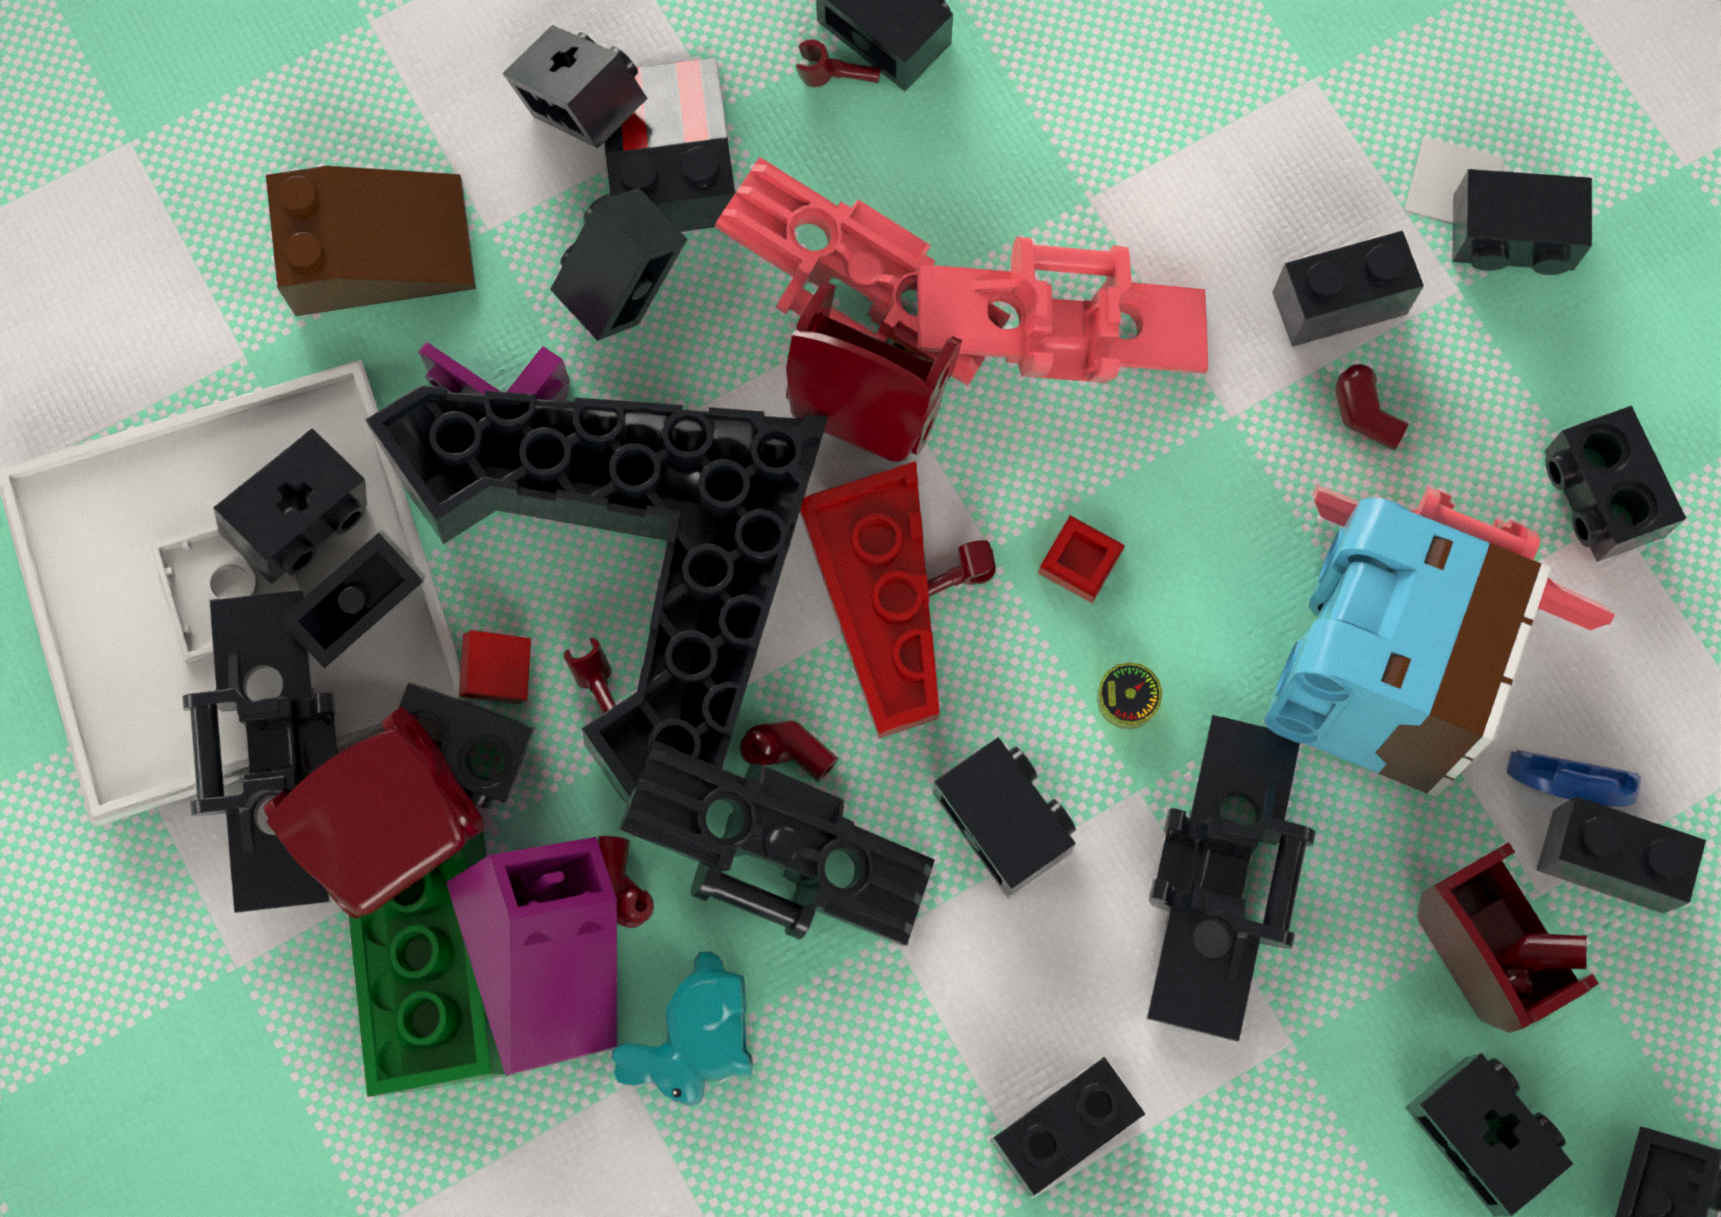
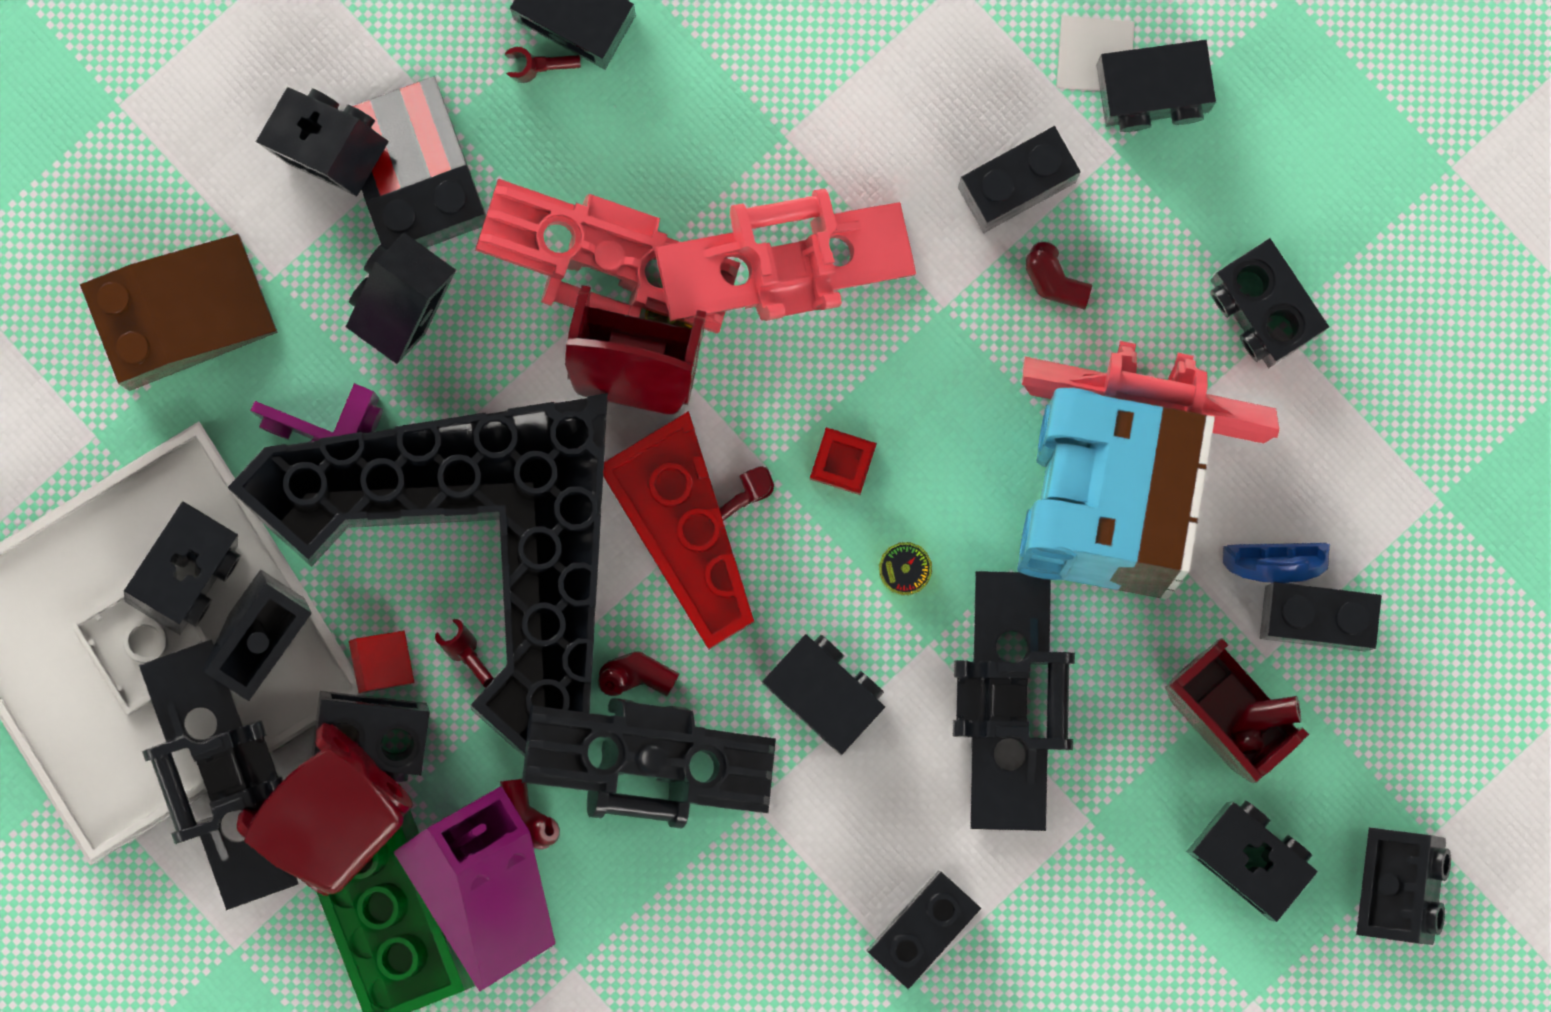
camera: 15 degrees left, 10 degrees up
(702, 1036) = (622, 921): teal animal -> none

